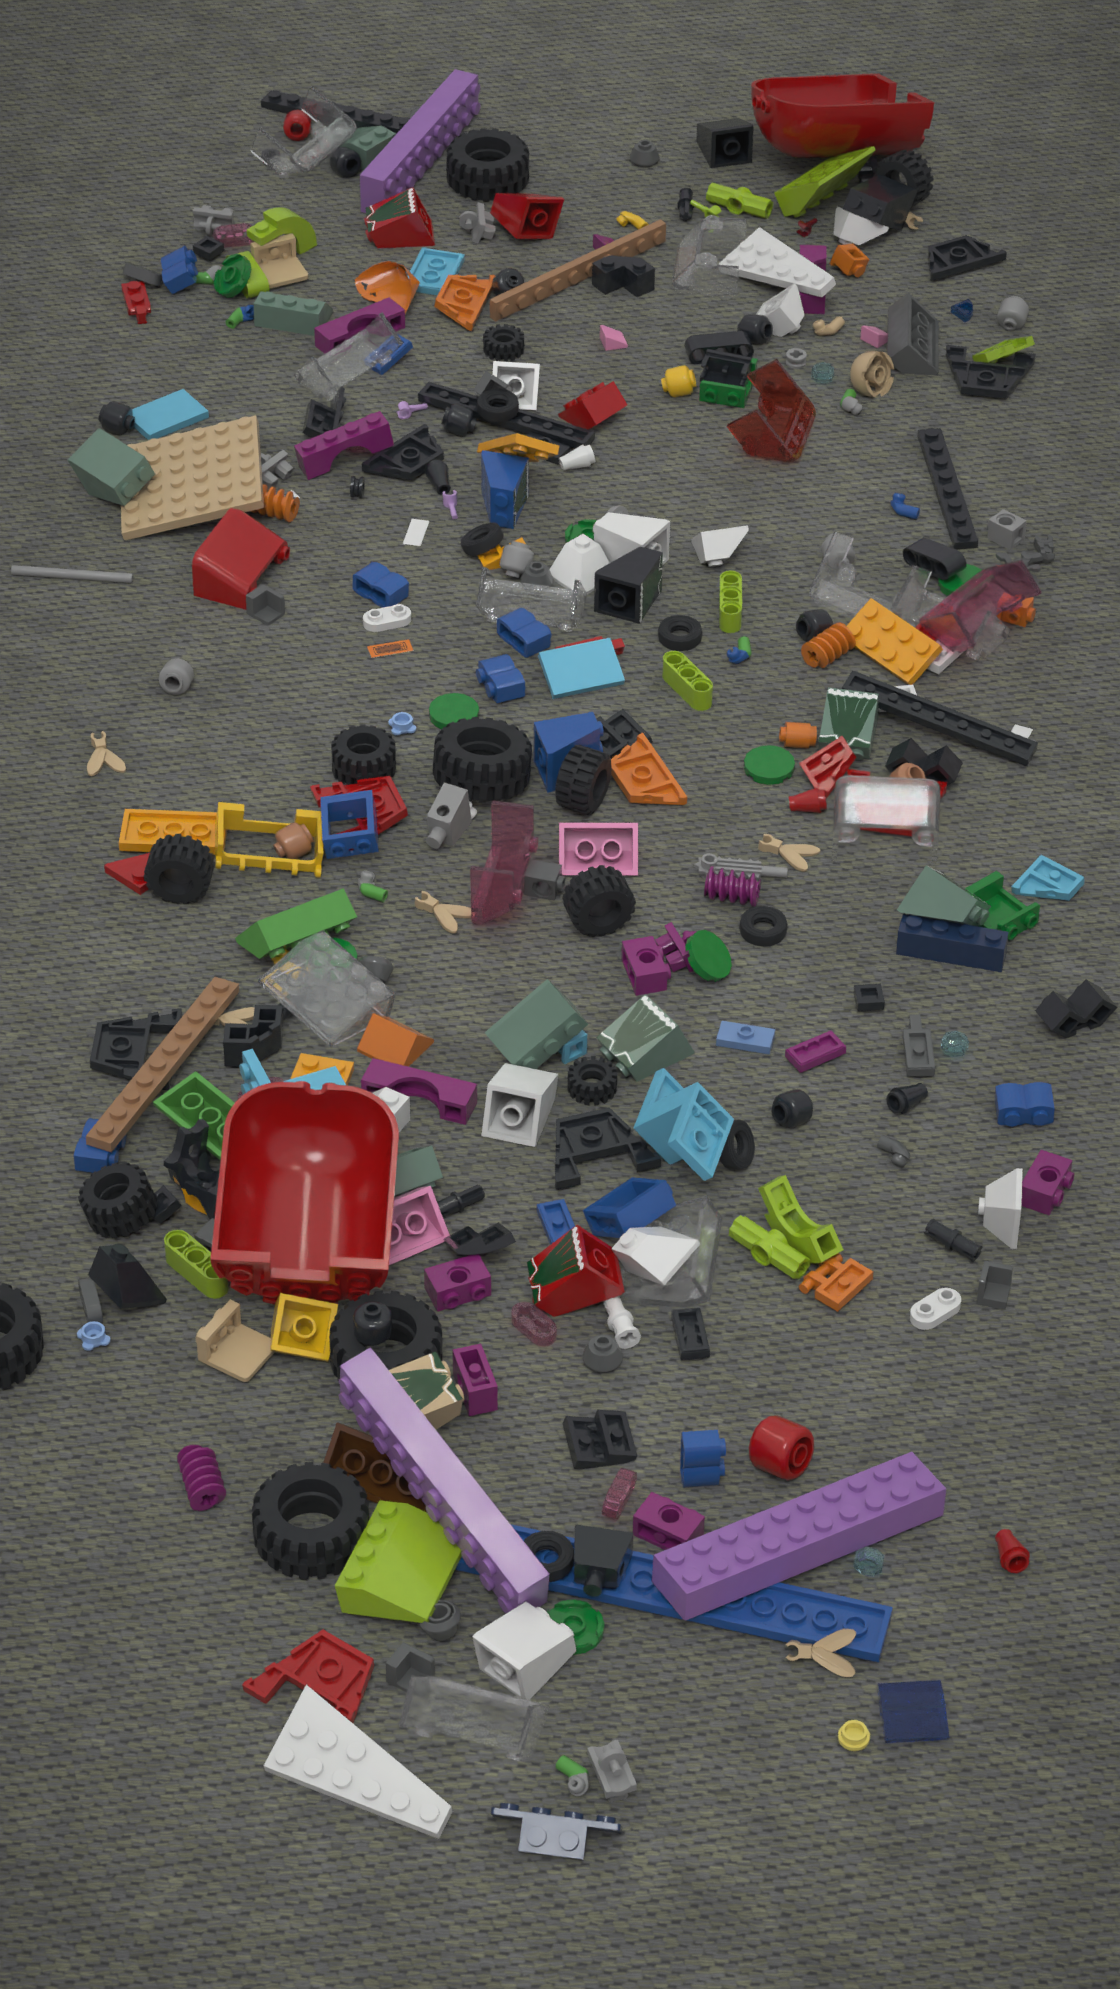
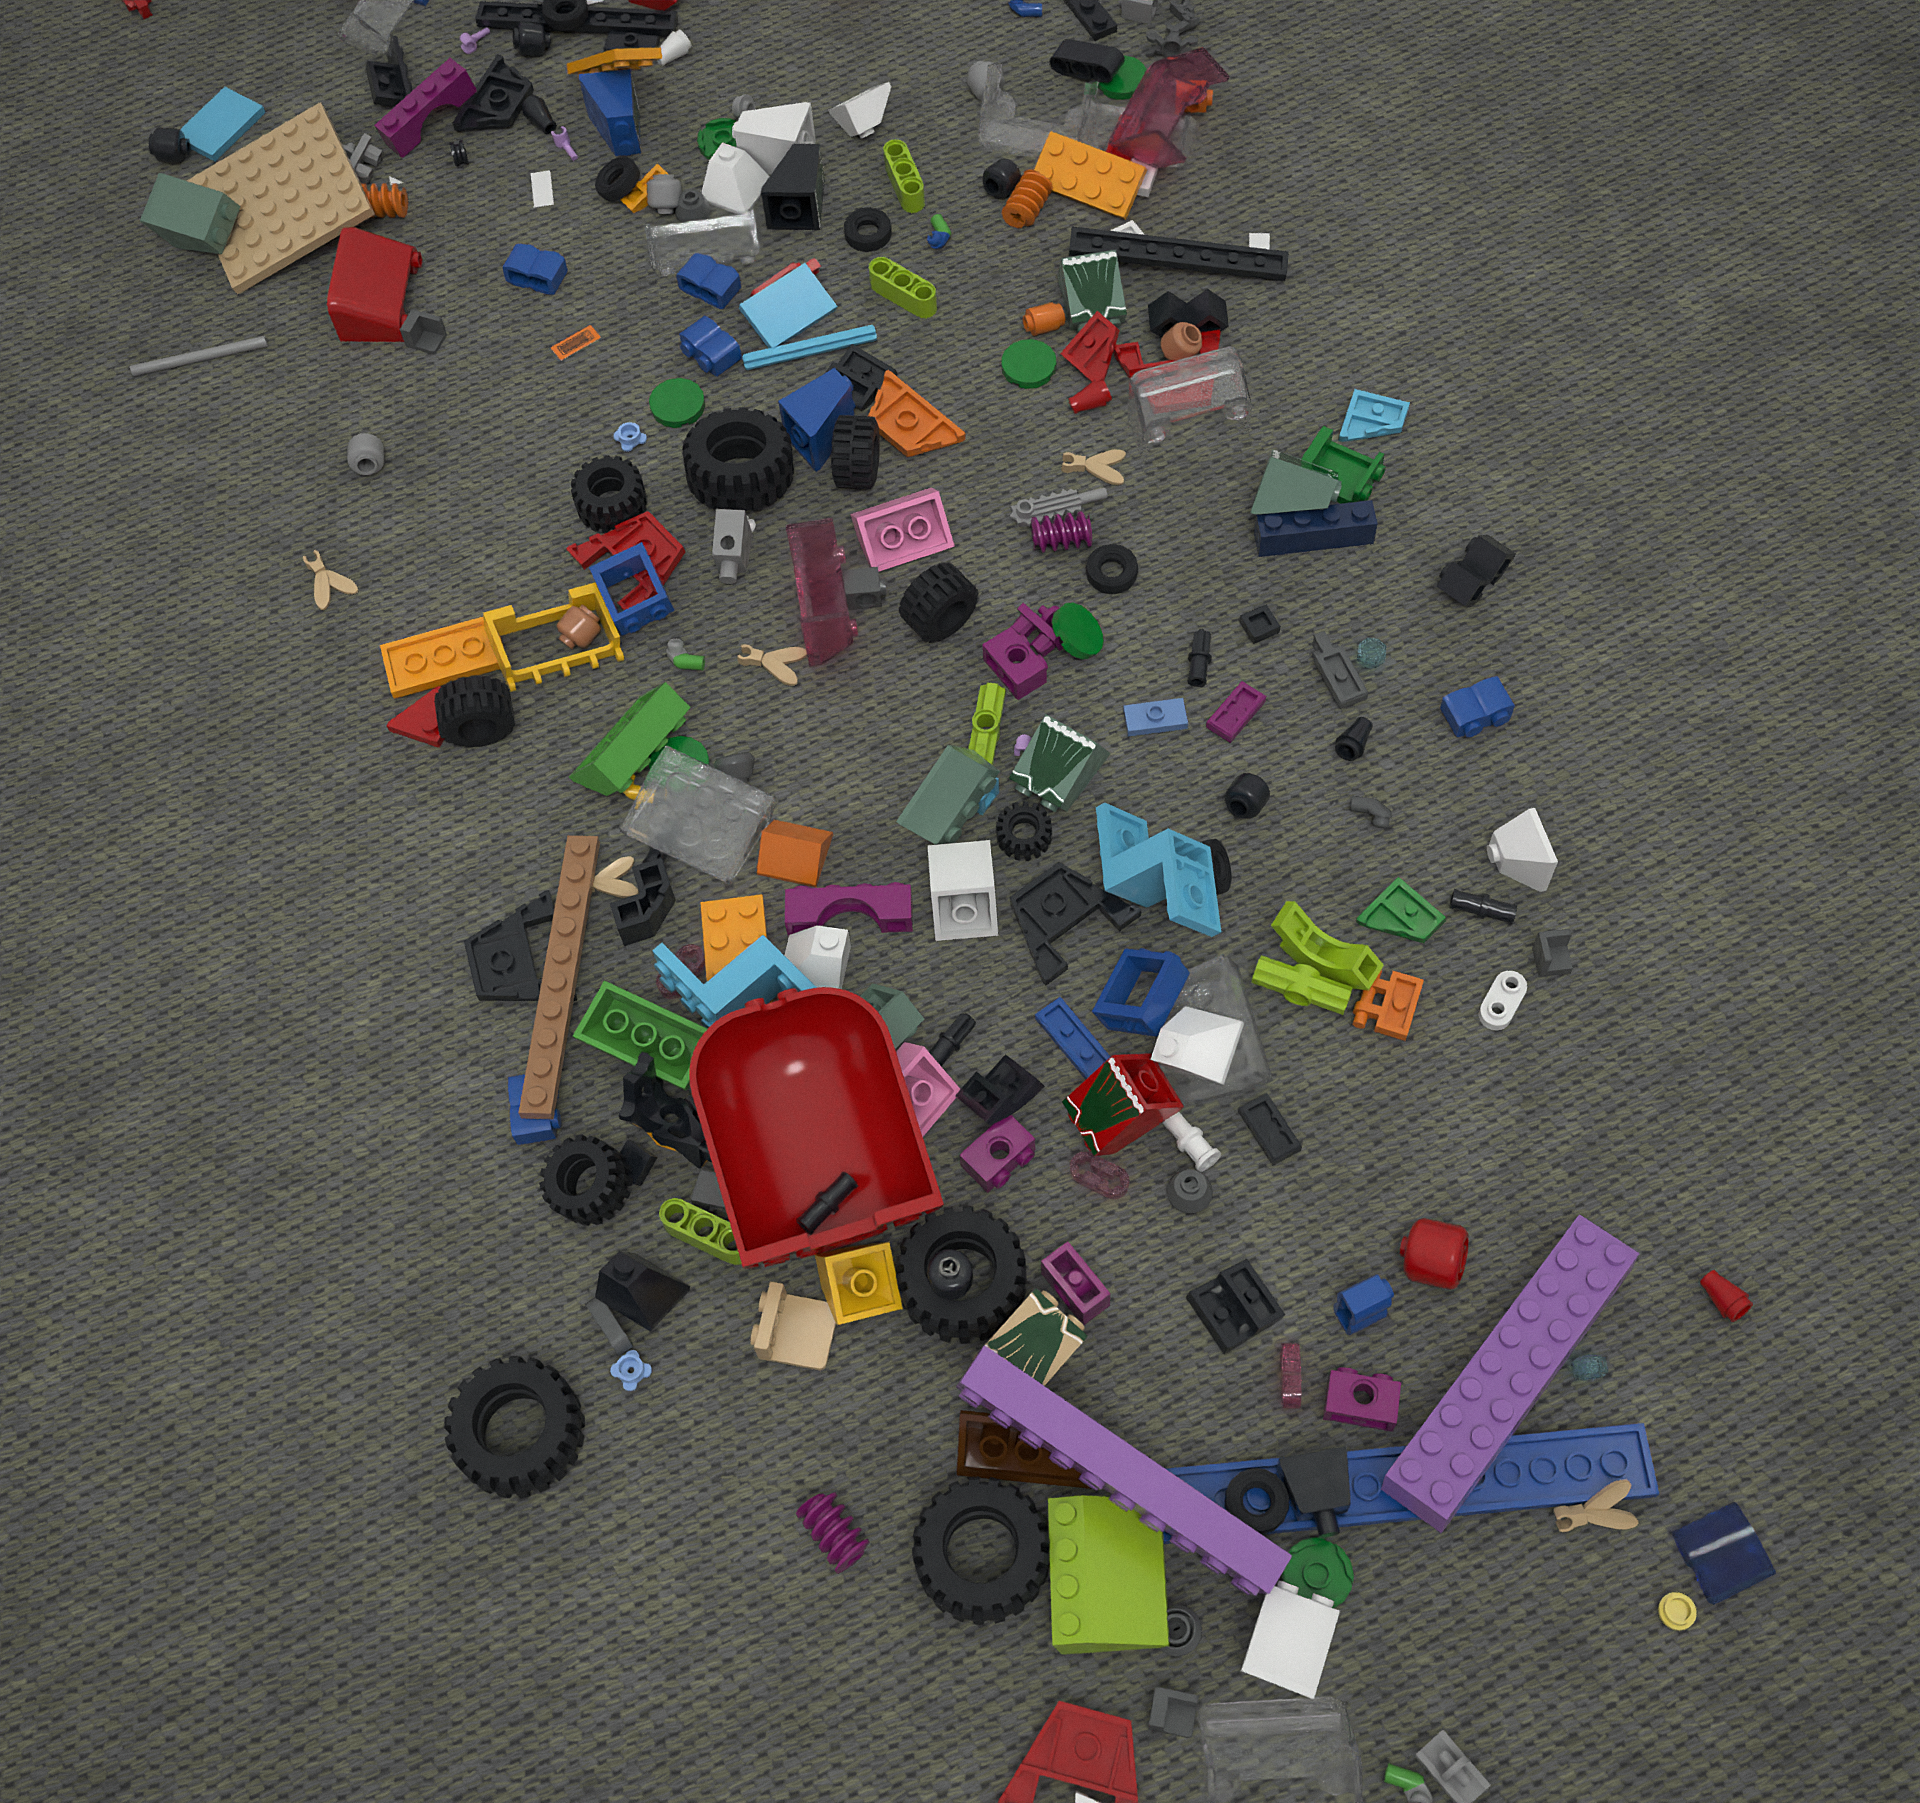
camera: 15 degrees left, 20 degrees up
(306, 1260) = (827, 1203): none -> black pin
(387, 618) = (557, 306): white plate -> none
(589, 703) = (809, 347): none -> medium azure axle
(600, 997) = (987, 714): none -> lime piece
(804, 1007) = (1199, 658): none -> black axle
(881, 1225) = (1402, 913): none -> green wing
(1046, 1182) = (1547, 783): magenta brick -> none

